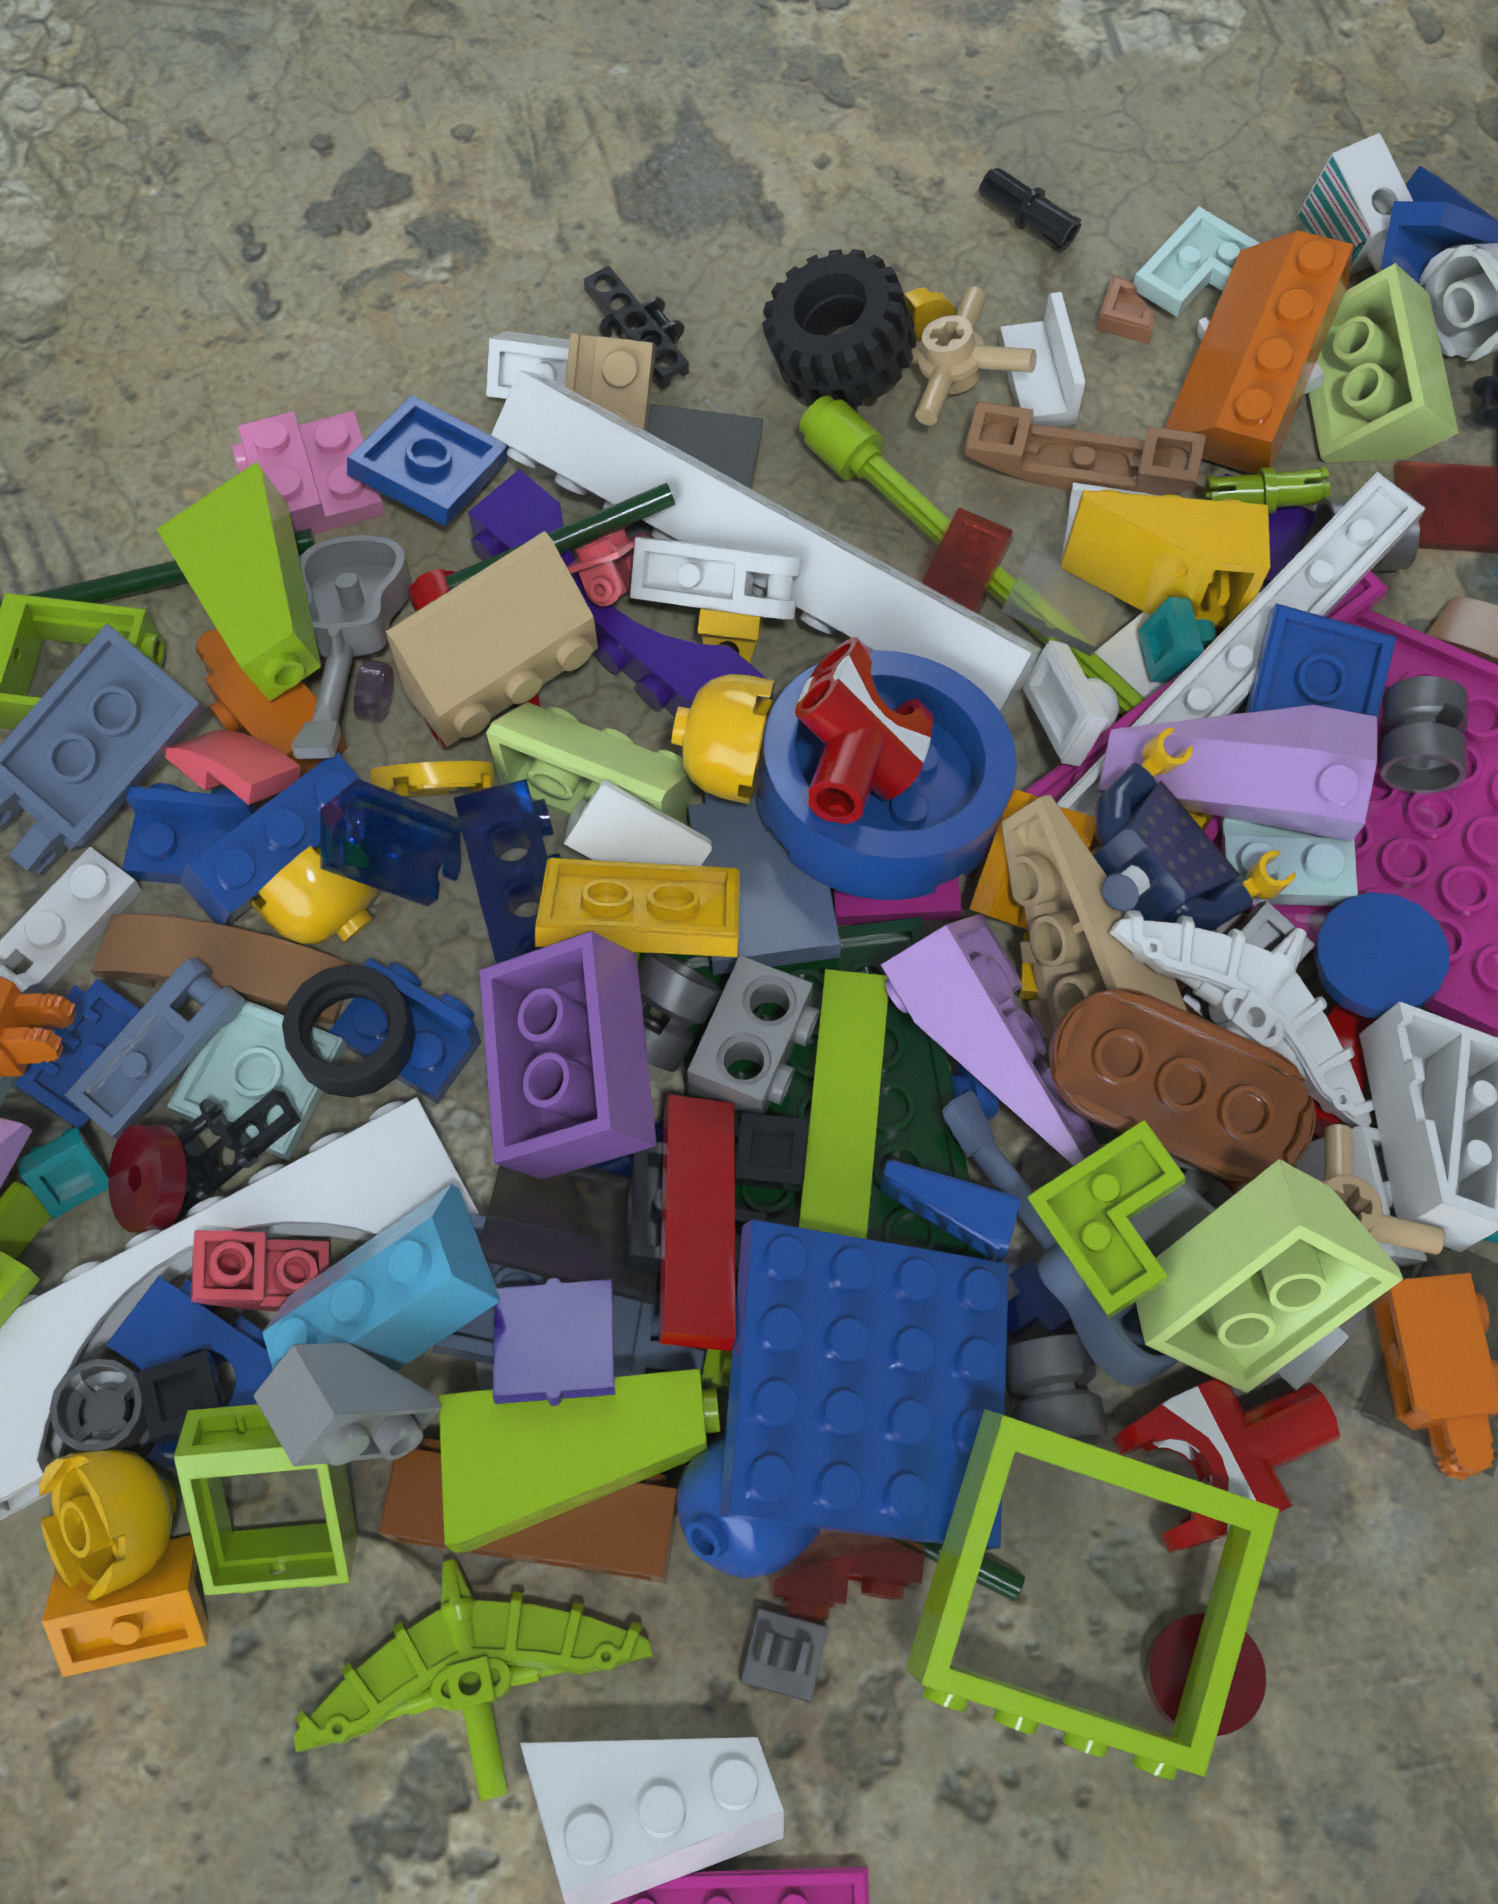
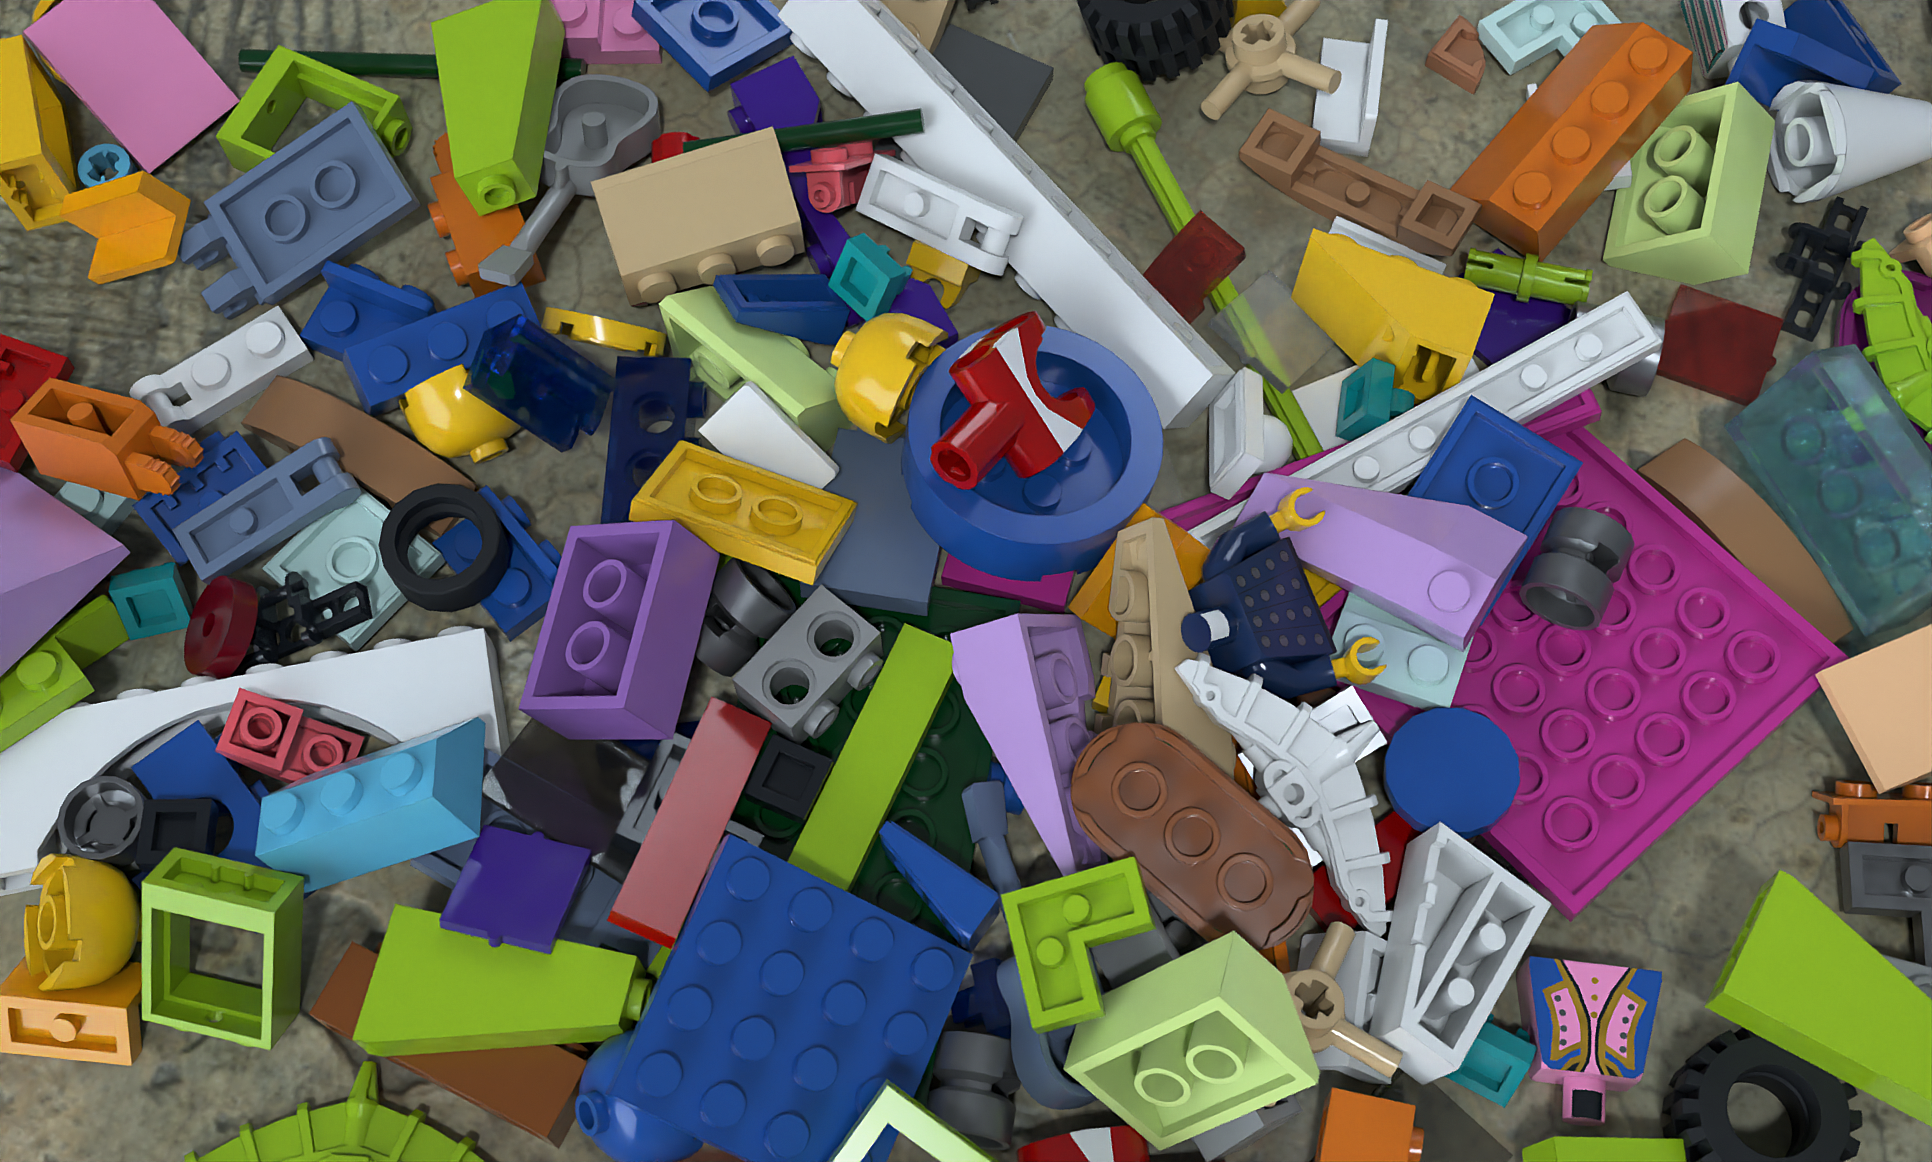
camera: 20 degrees right, 0 degrees up
(236, 760) = (430, 266): coral slope -> none
(342, 1406) = (302, 885): light grey slope -> none
(373, 691) = (583, 233): clear purple tile -> none
(600, 702) = (785, 304): none -> blue slope
(673, 654) = (868, 277): none -> teal tile

